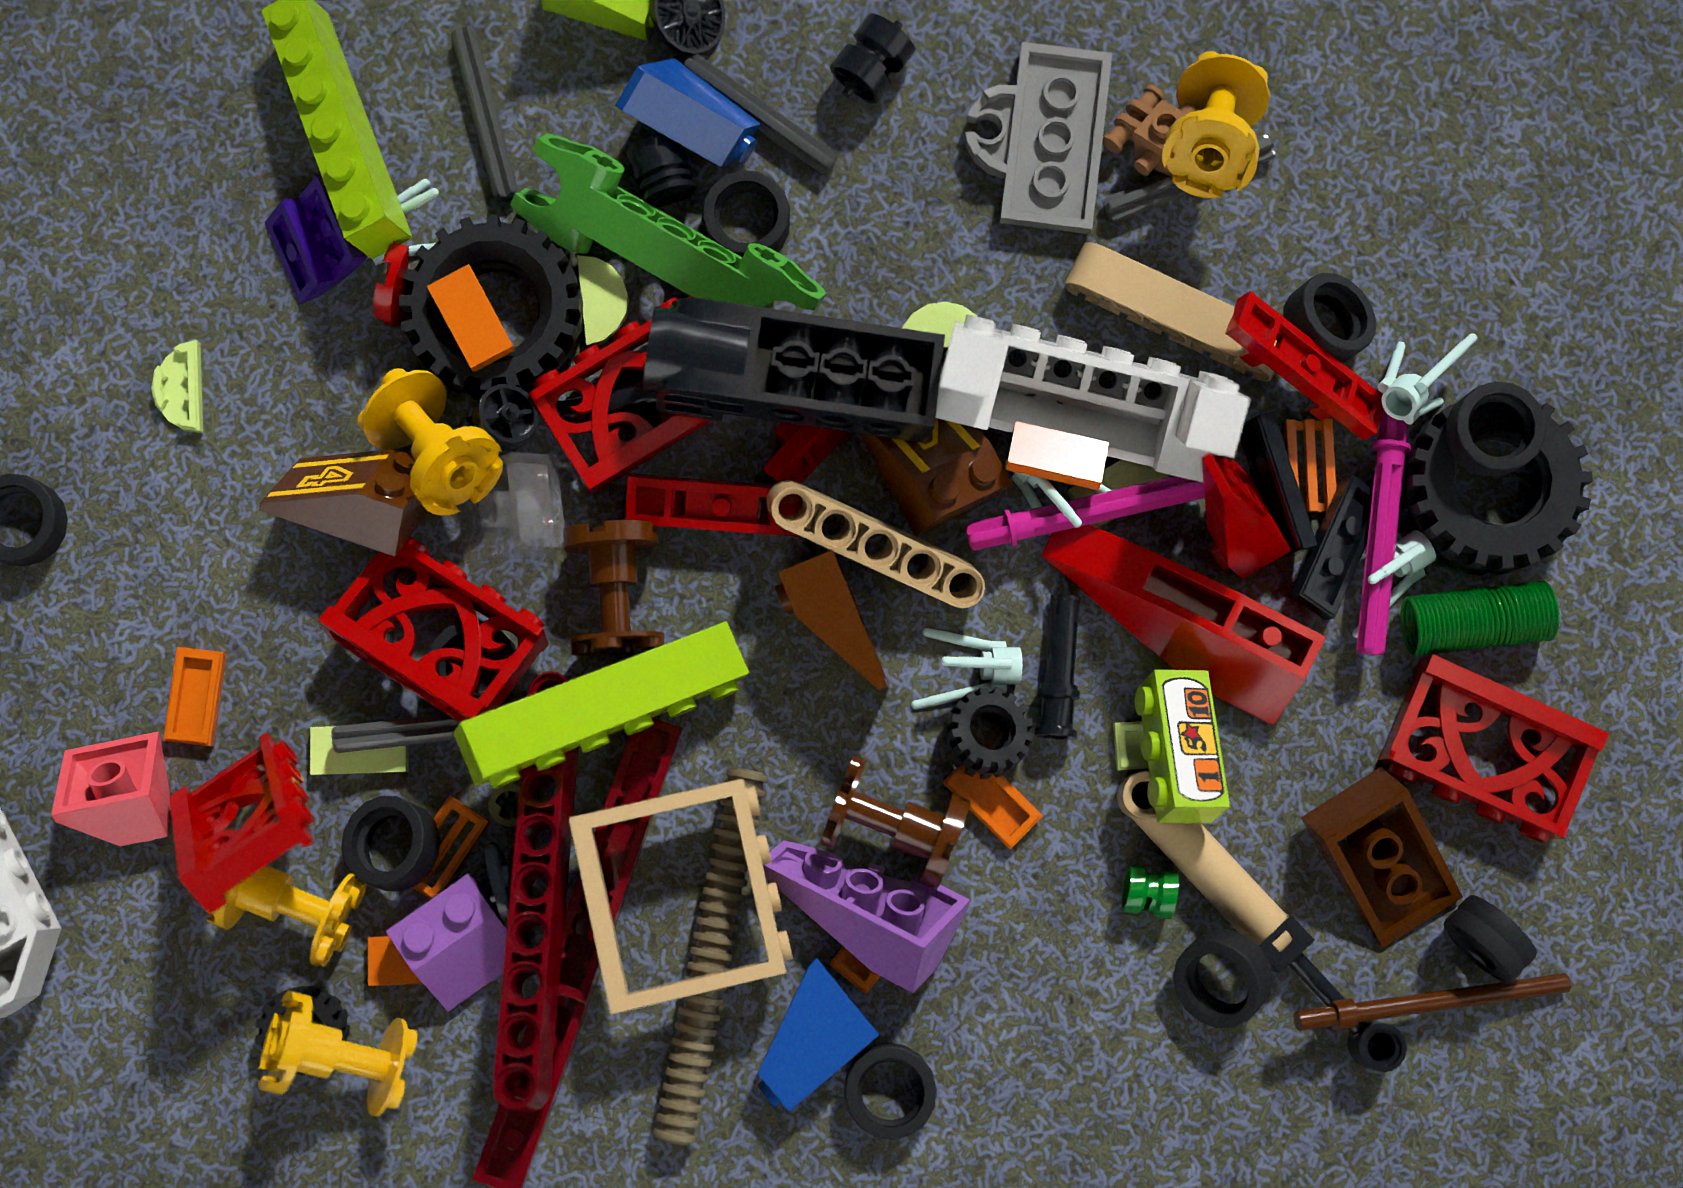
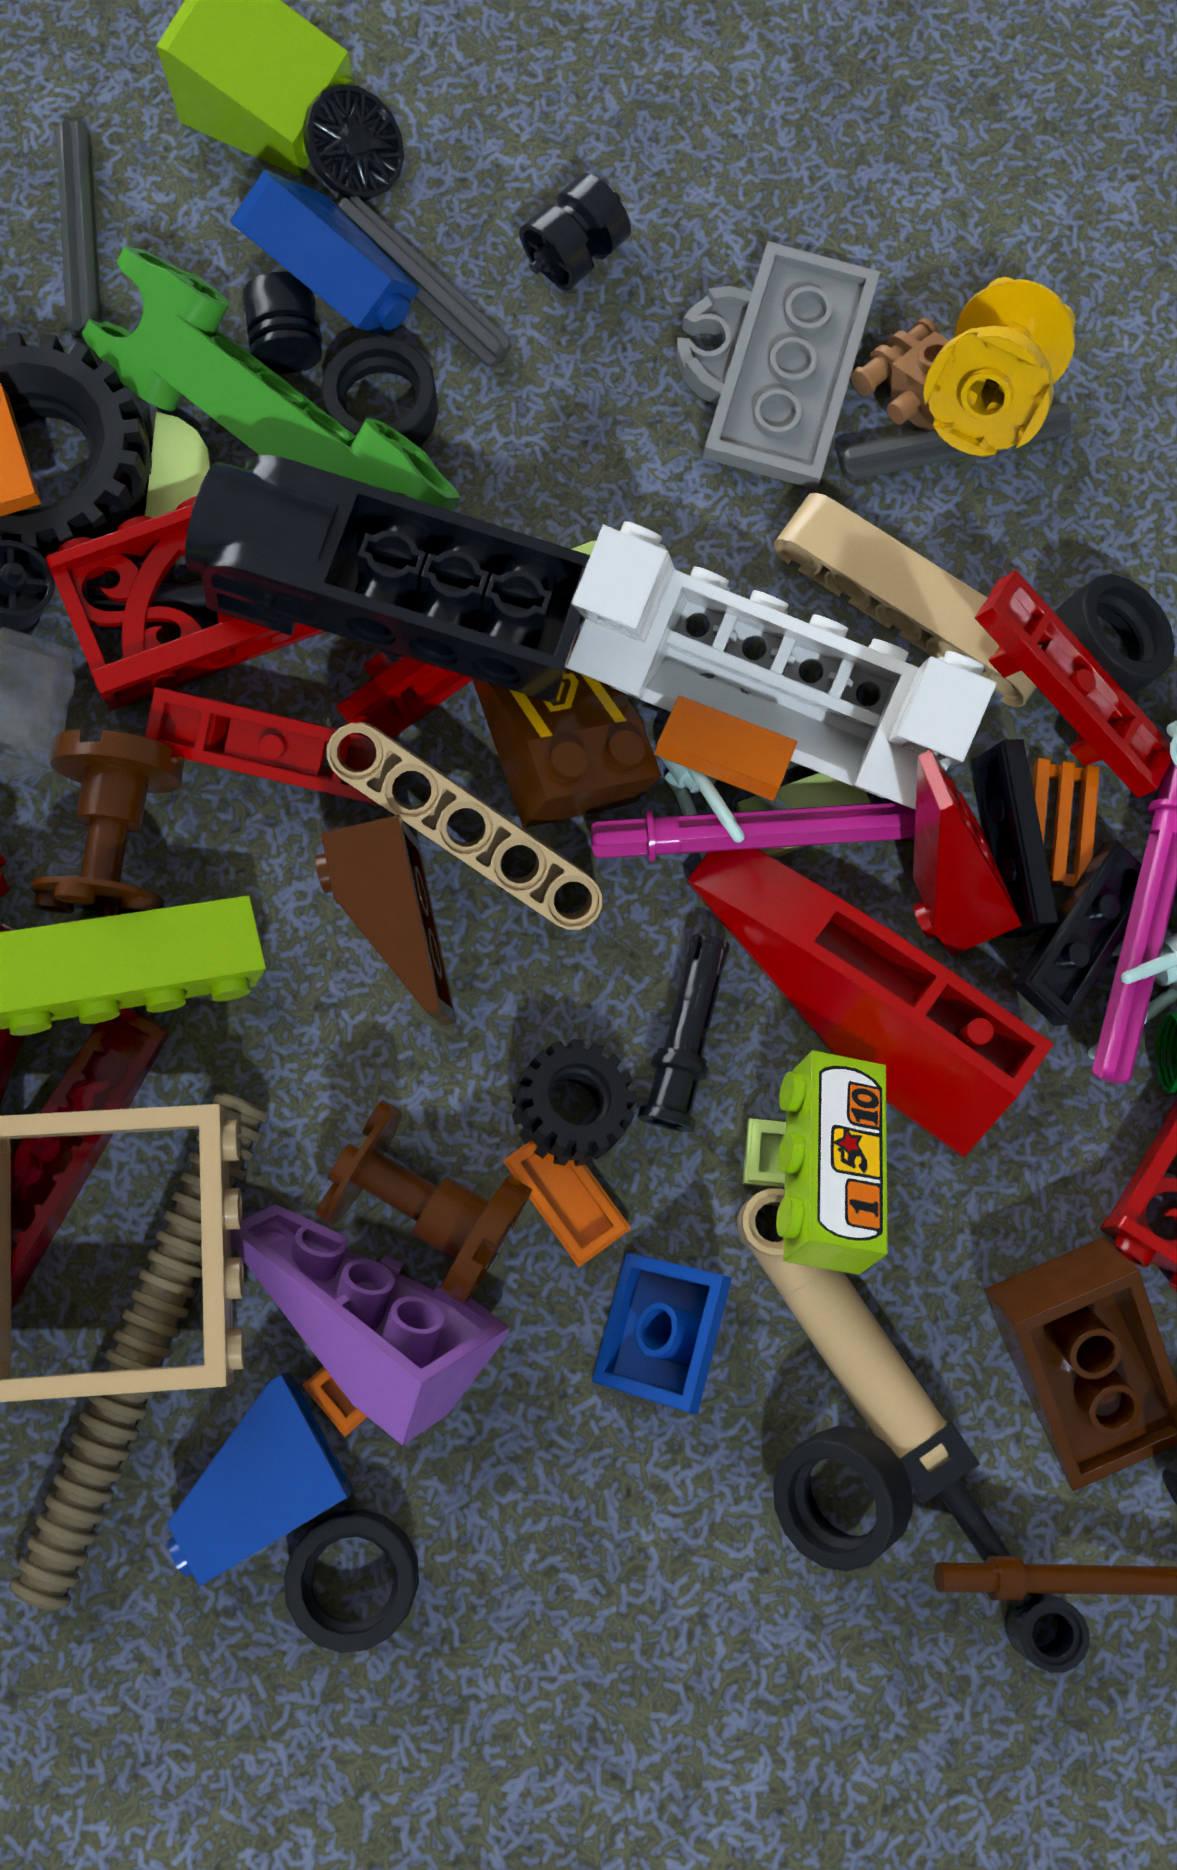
camera: 10 degrees right, 5 degrees down
(999, 666) = (604, 1011): light aqua plant -> none
(1077, 885) = (662, 1331): none -> blue slope
(1150, 892) = (761, 1358): green wheel -> none

